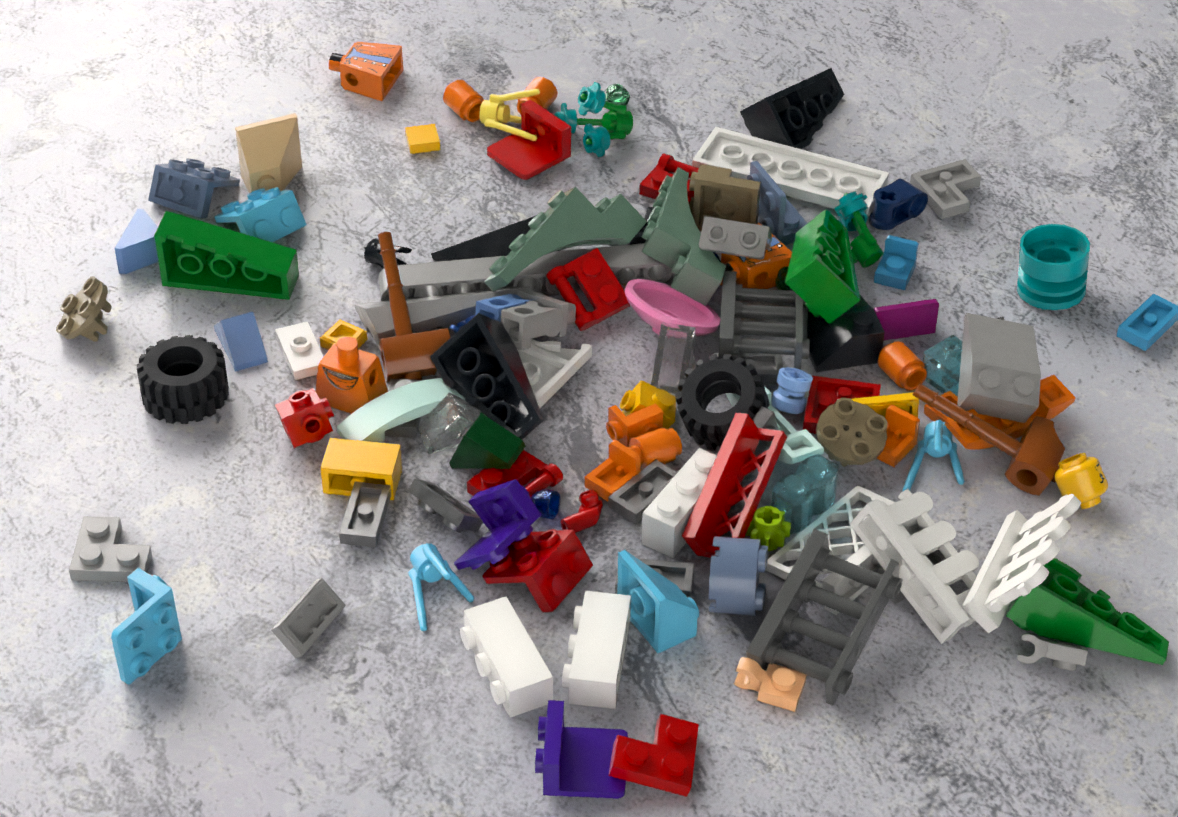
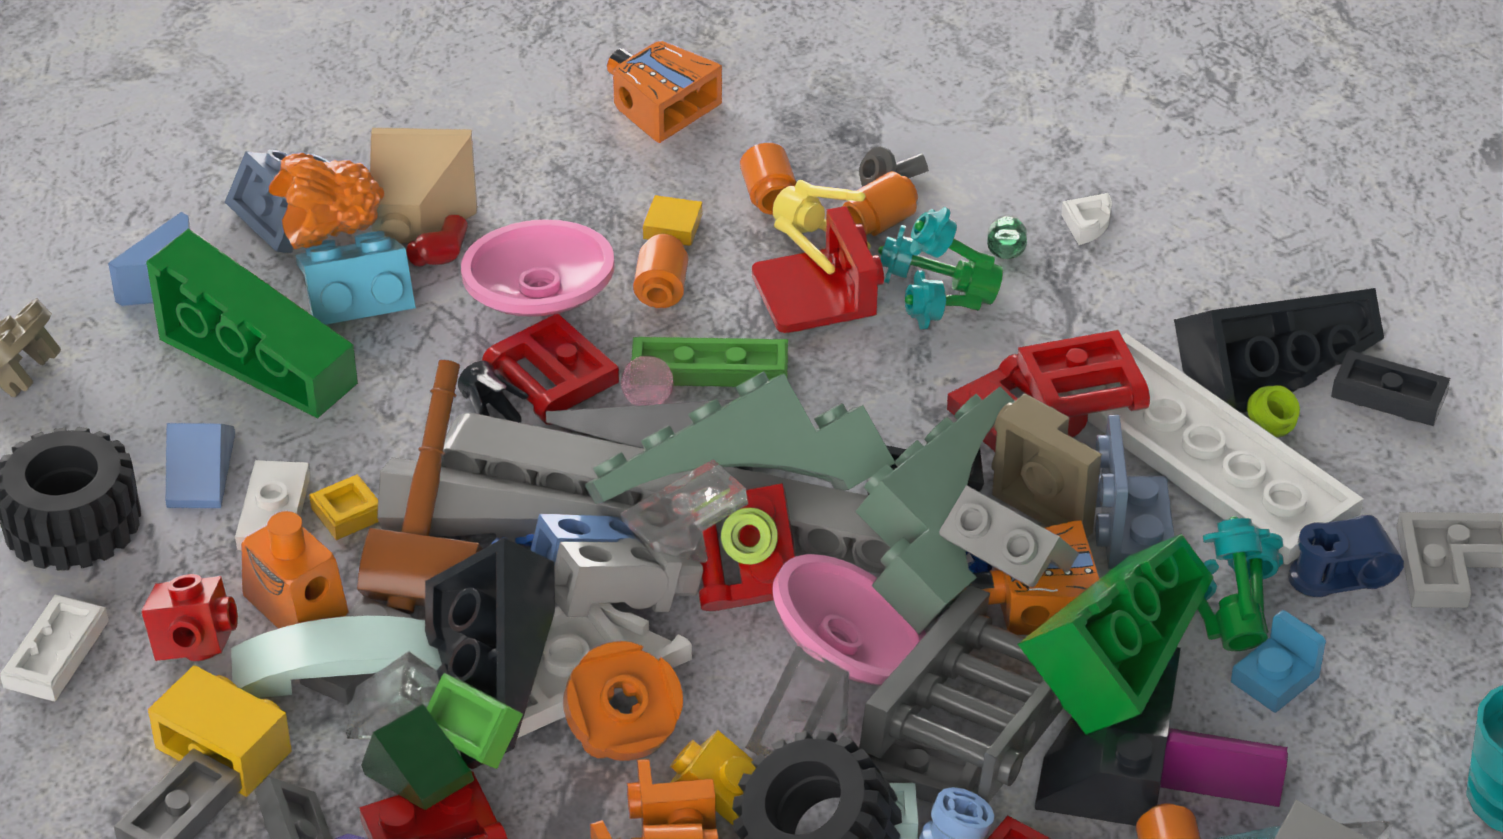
camera: 25 degrees right, 0 degrees up
(228, 175) = (325, 198): none -> orange hair
(231, 459) = (54, 648): none -> white plate
(299, 184) = (438, 246): none -> red arm
(372, 180) = (537, 267): none -> bright pink dish
(415, 226) = (562, 356): none -> red plate
(439, 165) = (661, 271): none -> orange brick
(470, 224) = (647, 381): none -> clear pink plate
(495, 206) = (715, 360): none -> bright green tile
(514, 413) = (473, 720): none -> bright green tile
(522, 76) = (881, 161): none -> dark grey plate
(558, 273) = (678, 513): none -> clear slope
(567, 397) = (639, 674): none -> orange plate
(604, 275) = (731, 535): none -> lime plate
(650, 75) = (1087, 216): none -> white tile
(710, 145) = (1080, 365): none -> red plate
(815, 142) = (1274, 410): none -> lime plate
(866, 116) = (1390, 387): none -> black plate

